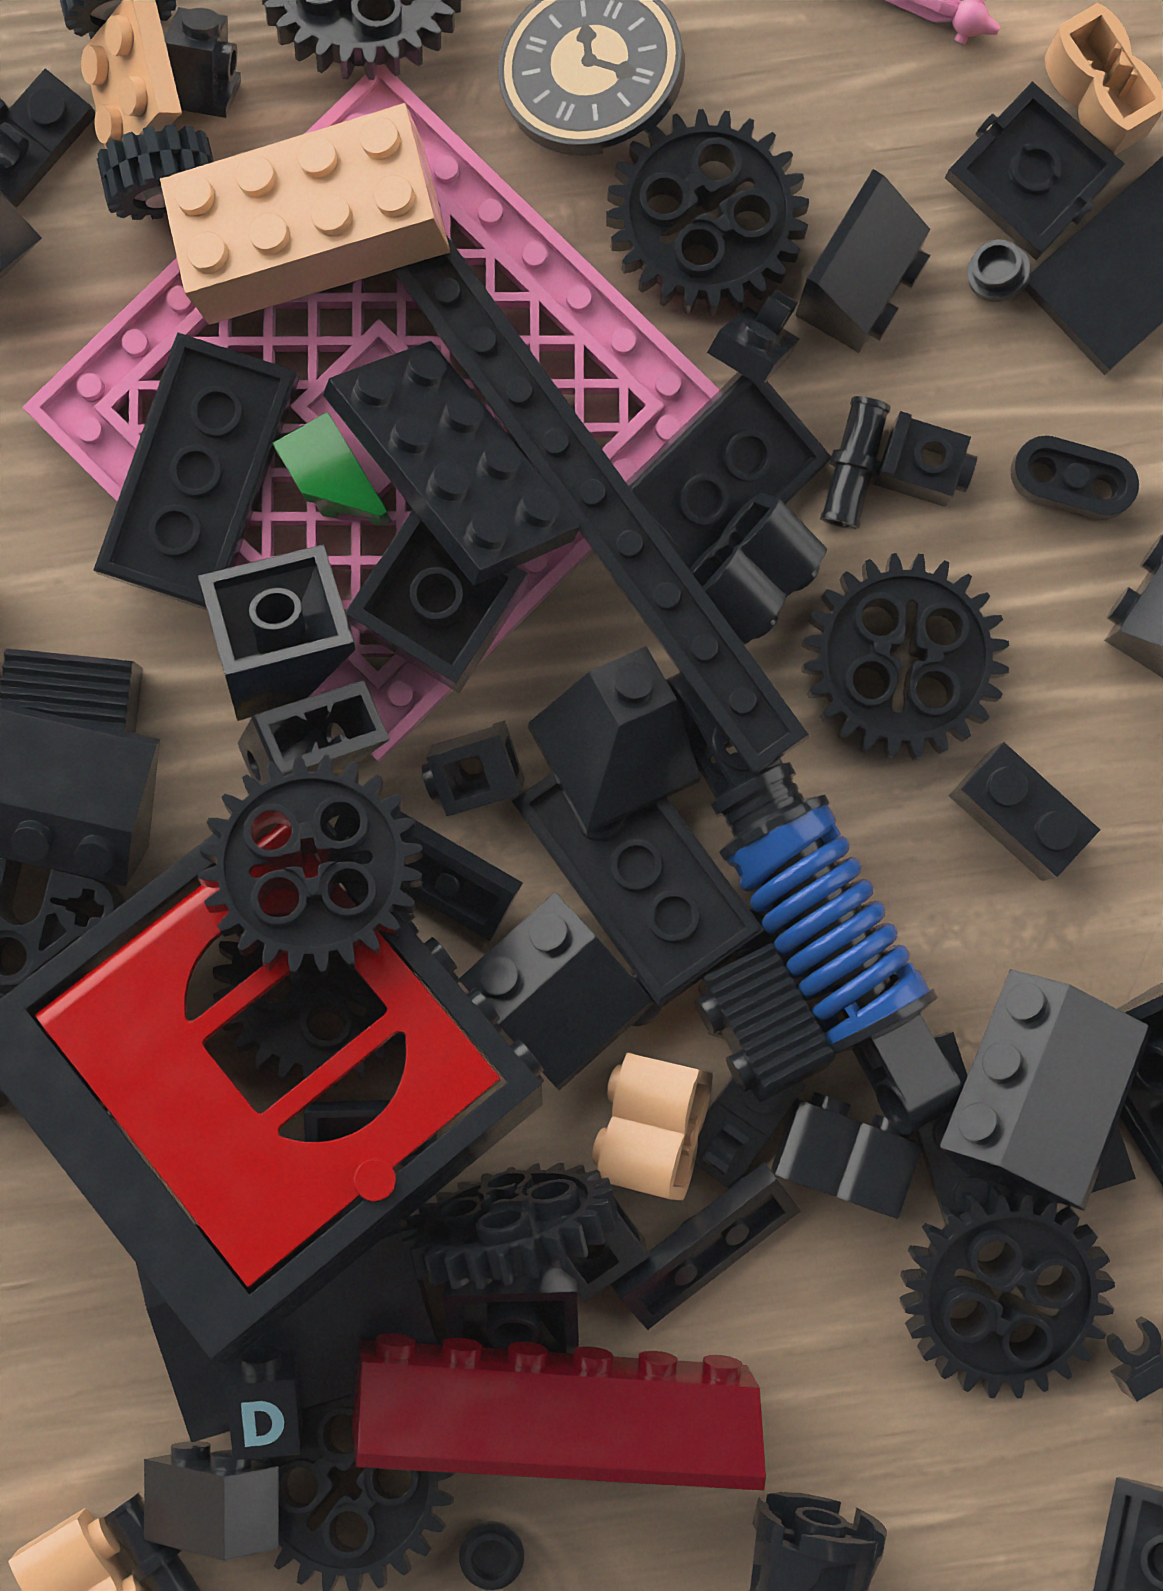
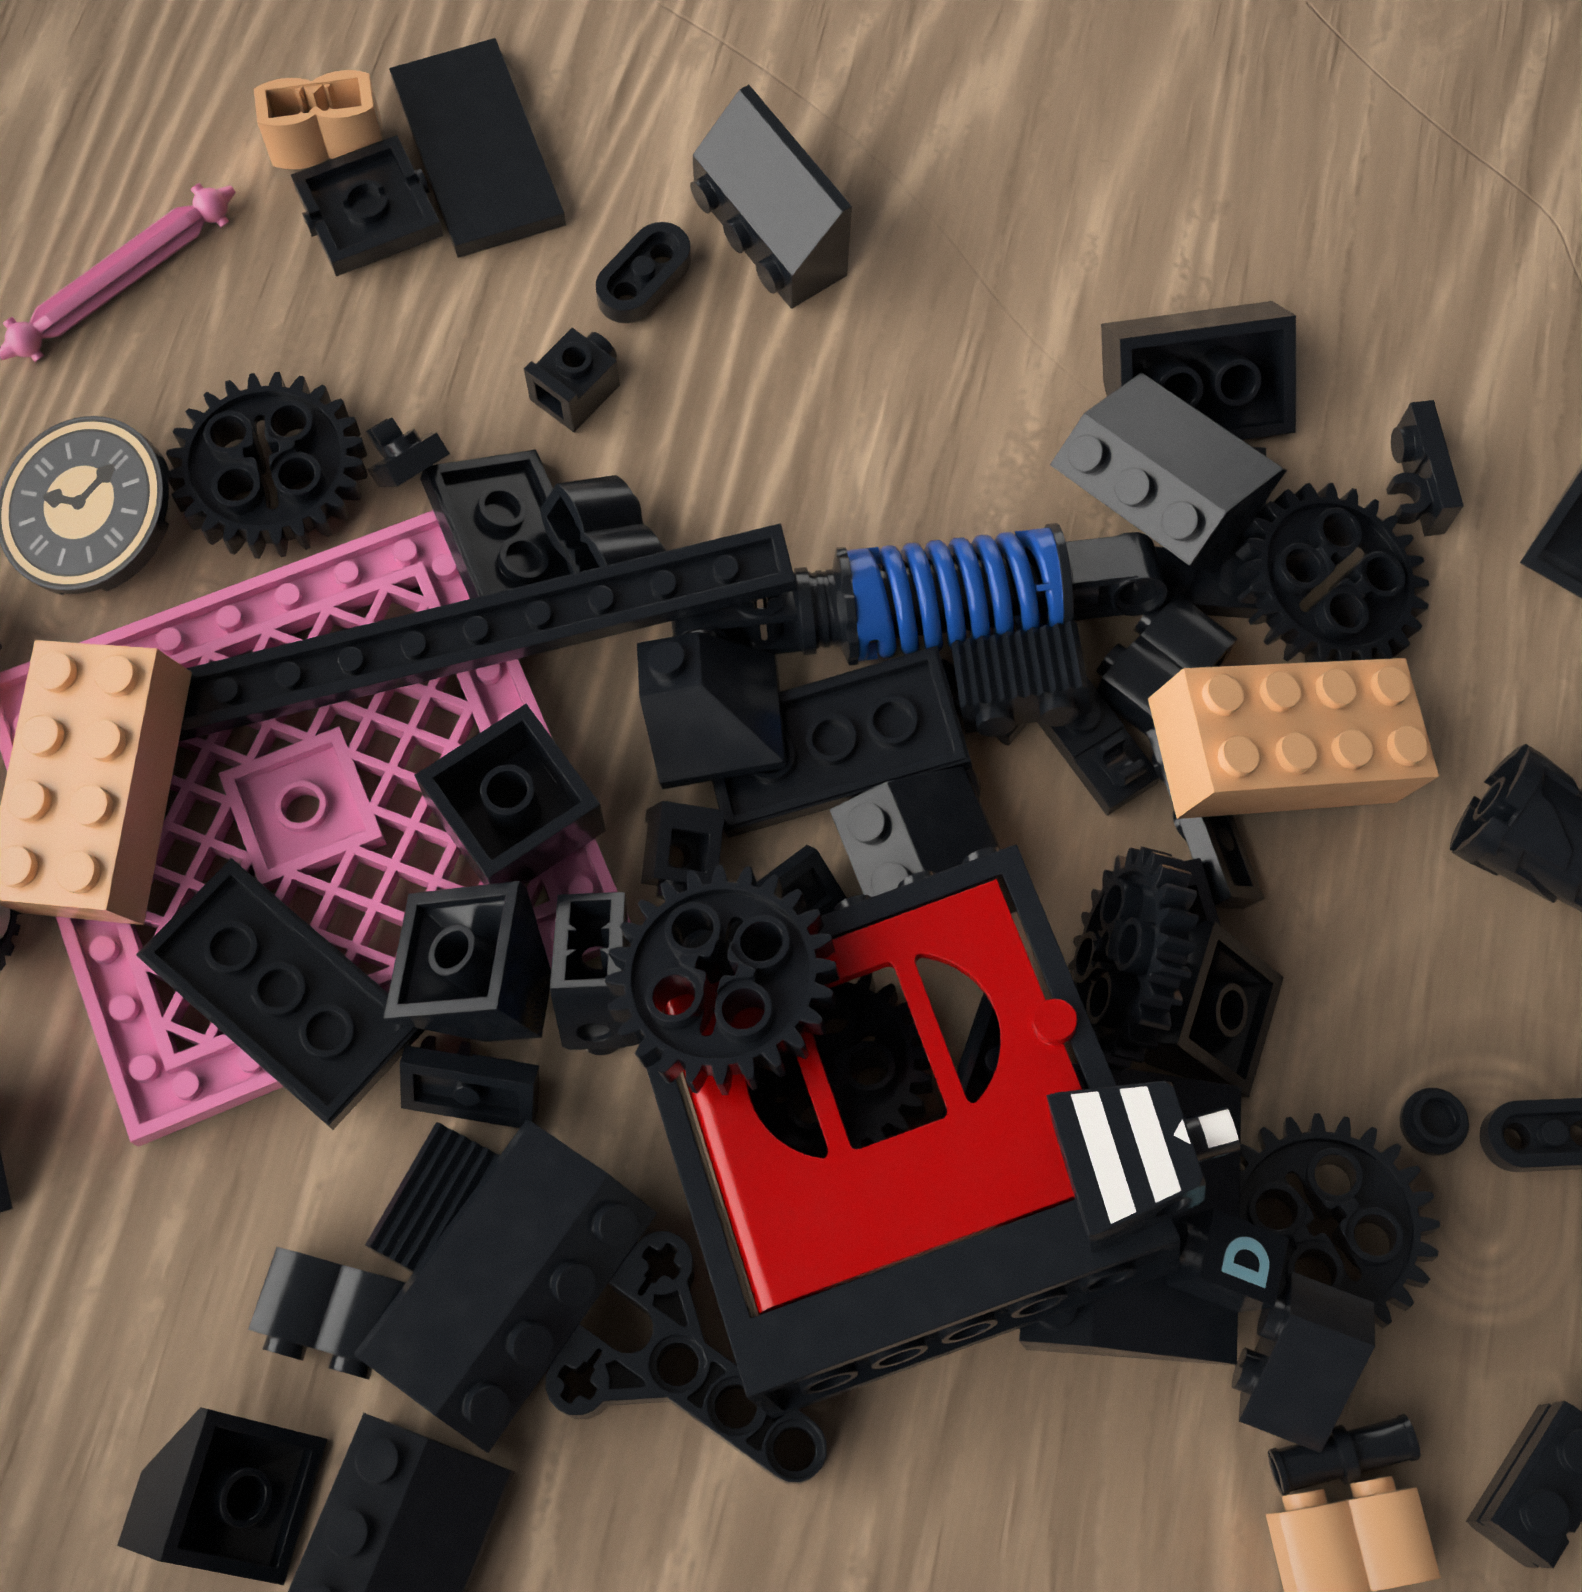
camera: 70 degrees left, 15 degrees down
(181, 668) = (468, 1085): none -> black plate
(259, 1294) = (1135, 1155): none -> black torso
(329, 471) = (341, 864): green slope -> none
(451, 461) = (387, 737): black plate -> none
(557, 1414) = (1324, 987): dark red slope -> none
(653, 1126) = (1076, 814): light nougat brick -> none
(804, 1307) = (1291, 736): none -> light nougat brick
(855, 462) = (549, 432): black pin -> none
(864, 266) = (381, 353): black slope -> none
(960, 667) = (738, 454): black gear -> none
(998, 271) = (438, 262): black plate -> none
(1024, 812) = (915, 411): black brick -> none

